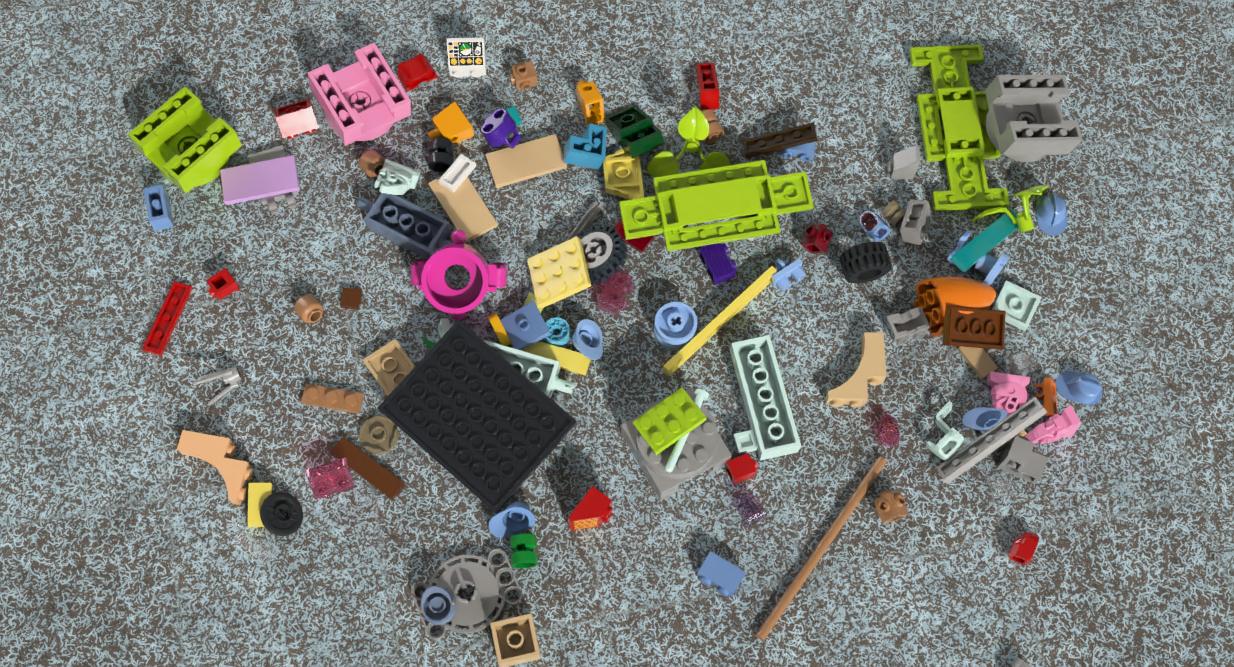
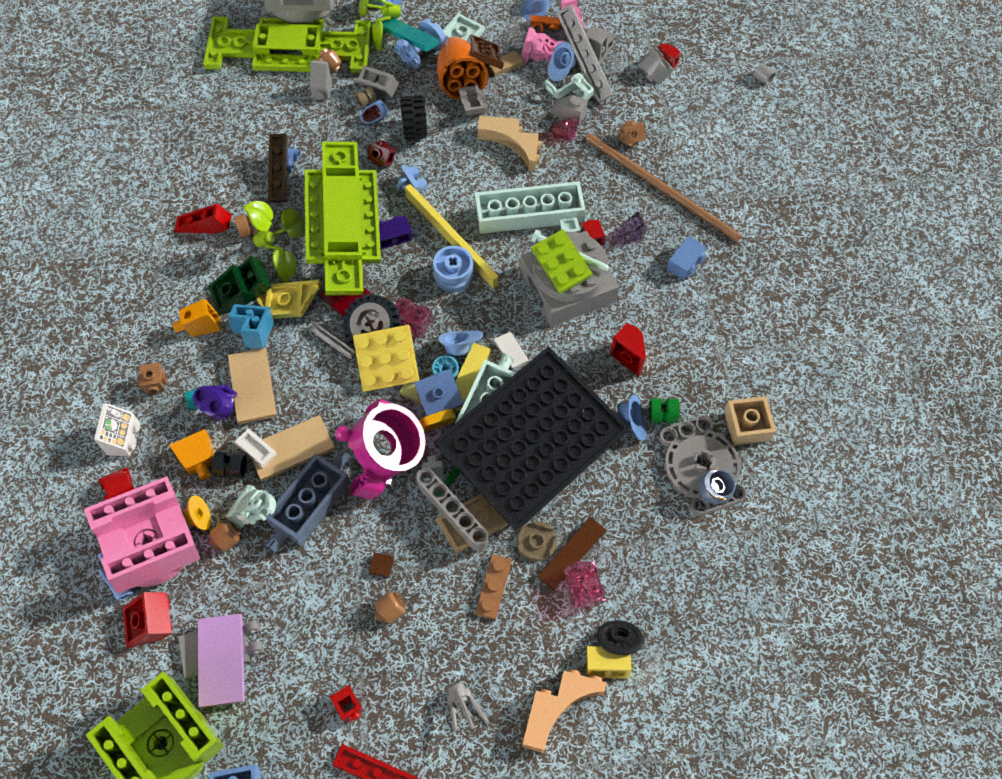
camera: 85 degrees left, 5 degrees down
(390, 144) = (197, 513): none -> yellow piece
(401, 340) = (454, 518): none -> light grey beam
(586, 395) = (509, 345): none -> white tile
(917, 435) = (570, 107): none -> light grey slope
(937, 168) = (332, 58): none -> medium nougat head
(1001, 531) = (655, 66): none -> light grey cylinder

